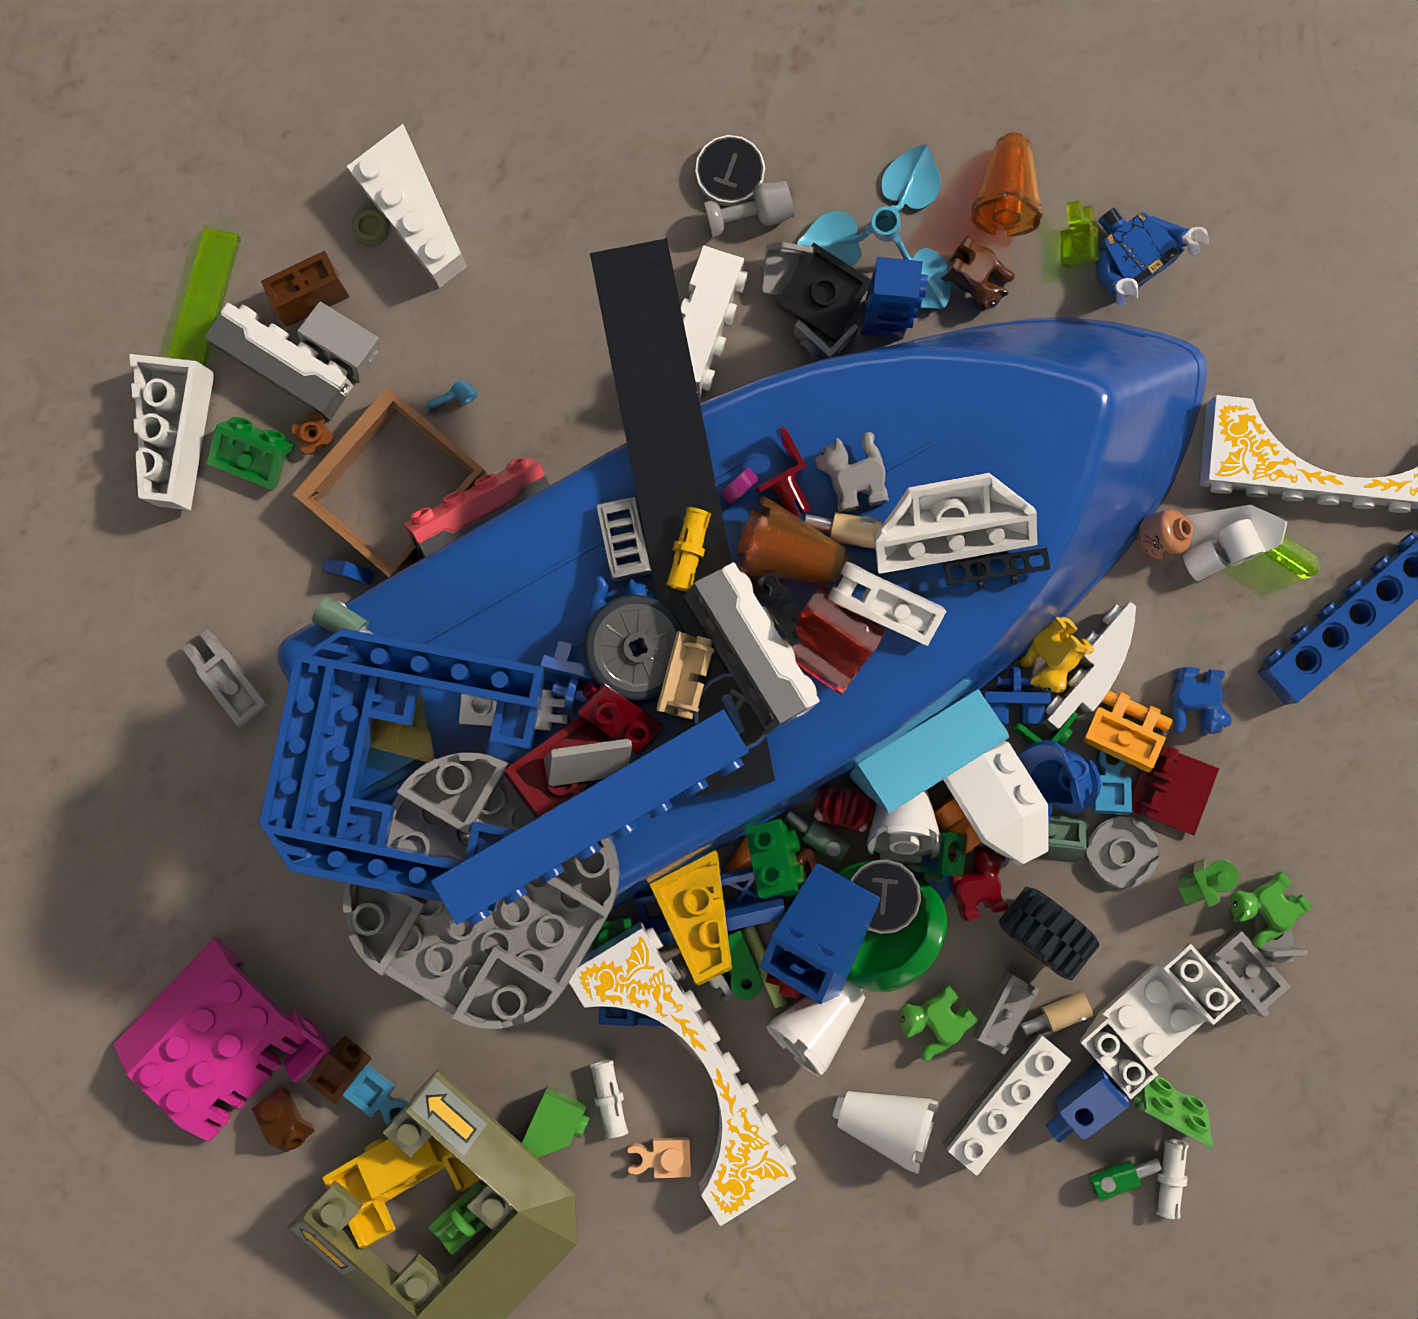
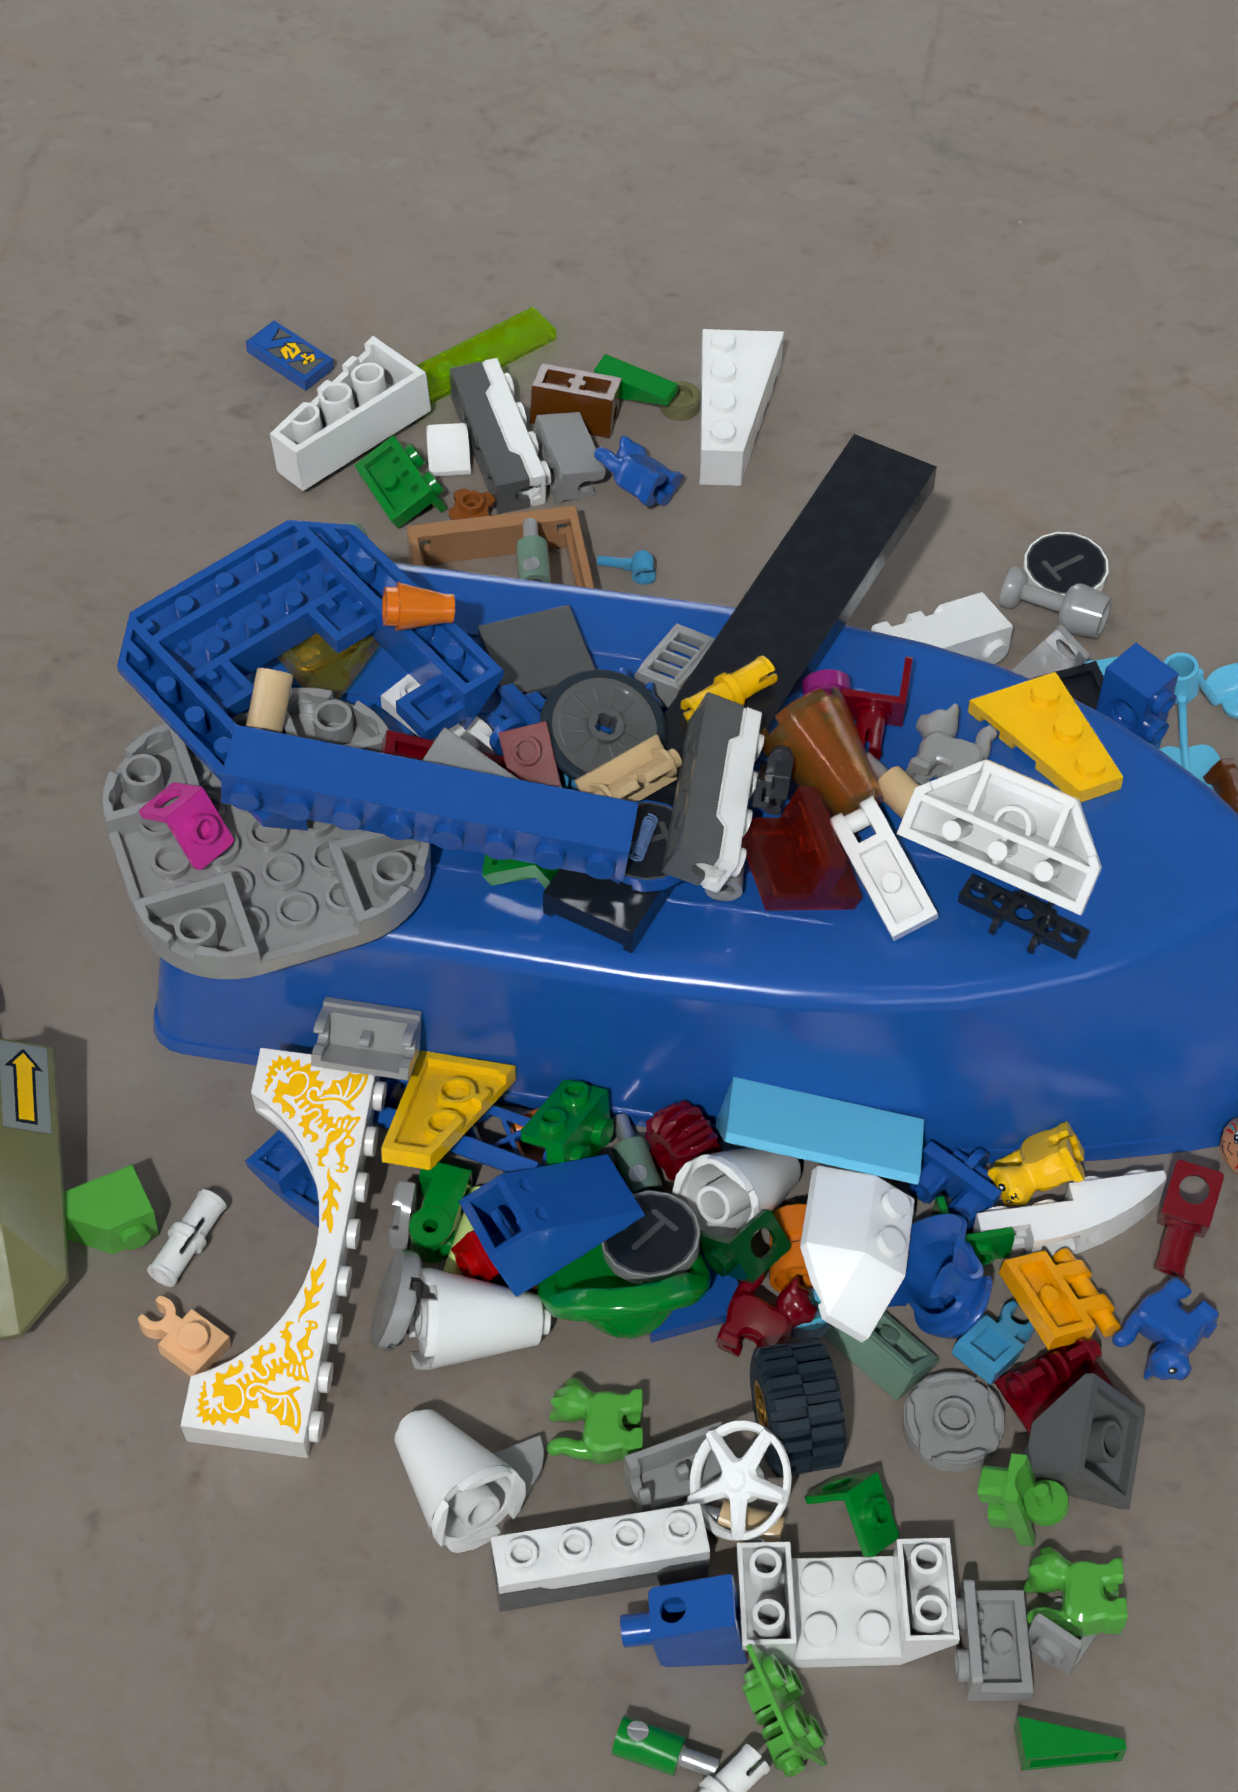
camera: 35 degrees right, 30 degrees down
(76, 402) = (289, 355): none -> tile
(256, 399) = (448, 449): none -> white slope
(332, 240) = (638, 383): none -> green piece
(399, 320) = (639, 473): none -> blue animal
(401, 458) = (532, 554): none -> sand green piece
(411, 813) = (269, 700): none -> tan piece
(438, 937) = (191, 821): none -> dark pink bracket
(449, 673) = (415, 607): none -> orange cone
(528, 605) = (536, 649): none -> dark grey tile
(631, 924) = (367, 1038): none -> light grey hinge
(766, 1047) = (395, 1300): none -> light grey tile
(902, 400) = (1053, 732): none -> yellow wing
(914, 1078) = (526, 1459): none -> light grey tile
(1054, 1005) = (740, 1480): none -> white wheel
(1120, 953) = (866, 1508): none -> green bracket
(1162, 624) = (1183, 1219): none -> dark red bracket
(1217, 821) = (1089, 1442): none -> dark grey slope
(1321, 1002) = (1054, 1745): none -> green piece

